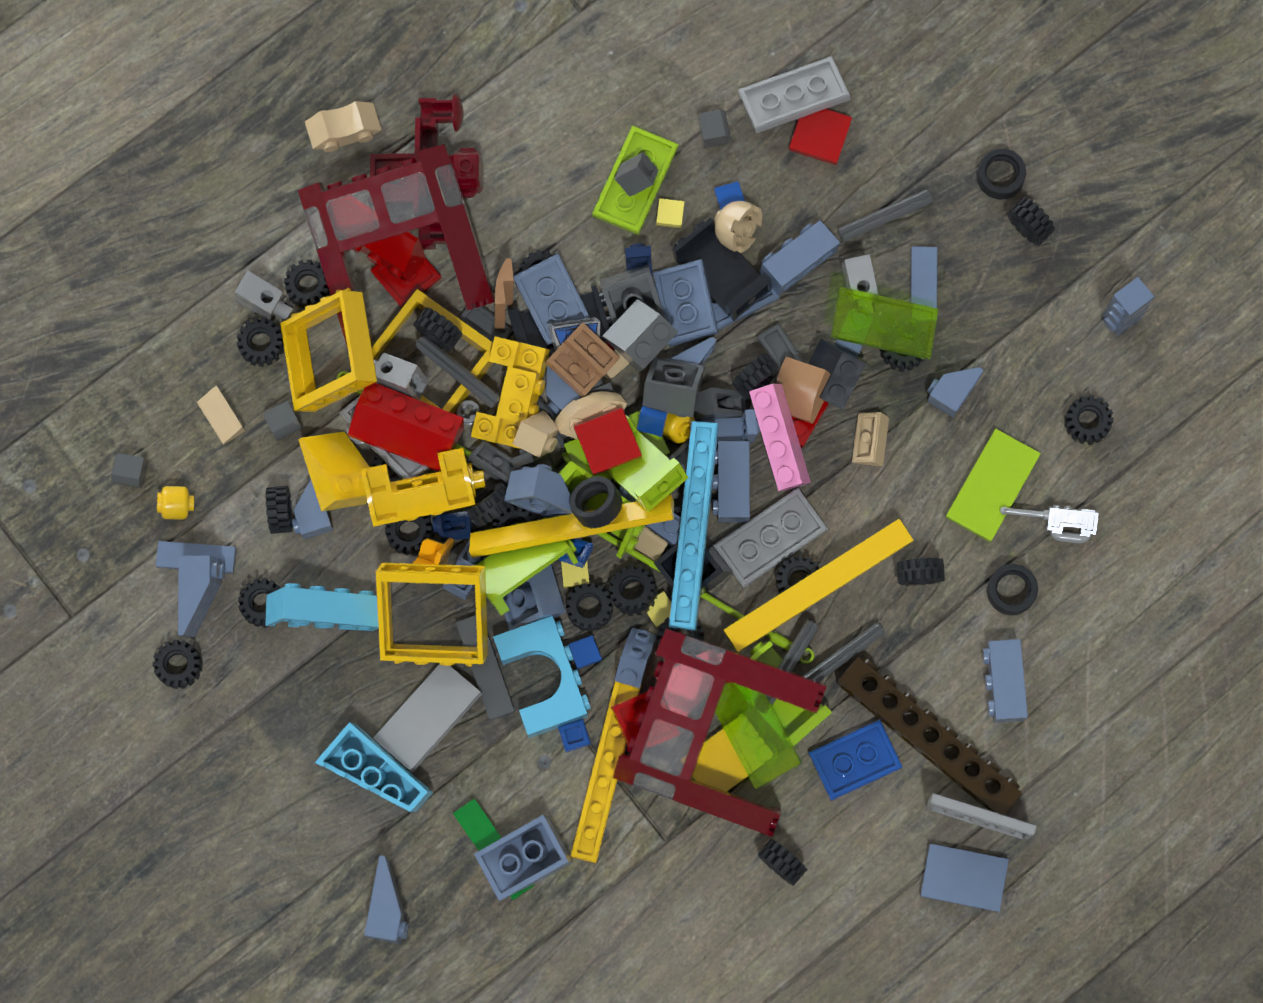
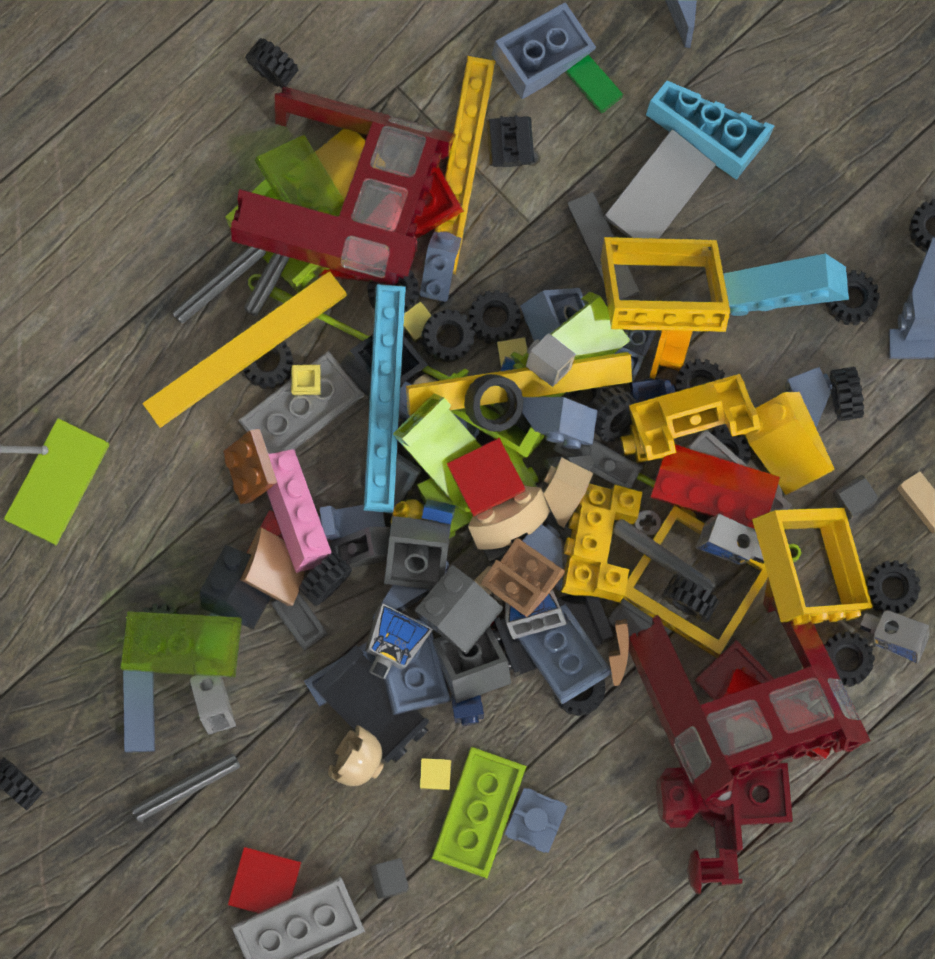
camera: 175 degrees right, 0 degrees up
(343, 126) = (829, 851): tan brick -> none
(542, 538) = (550, 359): none -> light grey brick
(544, 639) = (510, 213): medium azure arch -> none
(562, 775) = (510, 141): none -> black piece
(574, 735) = (501, 184): blue tile -> none
(585, 652) = (496, 271): blue tile -> none
(587, 169) = (536, 820): none -> sand blue piece
(636, 174) = (477, 811): dark grey panel -> none
(698, 314) = (394, 640): none -> torso
(728, 193) = (367, 798): blue tile -> none
(732, 482) = (345, 461): sand blue brick -> none
(764, 558) = (306, 380): none -> light yellow tile
(799, 256) = (283, 725): sand blue brick -> none
(818, 479) = (250, 466): none -> dark orange plate
(855, 760) = (199, 179): blue tile -> none
(870, 438) = (194, 525): tan slope -> none
(920, 571) = (134, 373): black tyre -> none
(953, 389) = (101, 583): sand blue slope -> none
(954, 769) = (48, 142): dark brown brick -> none
(964, 878) = (82, 68): sand blue tile -> none
(980, 817) = (64, 120): light grey tile -> none
(1001, 155) = (29, 839): black tyre -> none
(1005, 681) = (40, 268): sand blue brick -> none
(1024, 573) = (21, 349): black tyre -> none

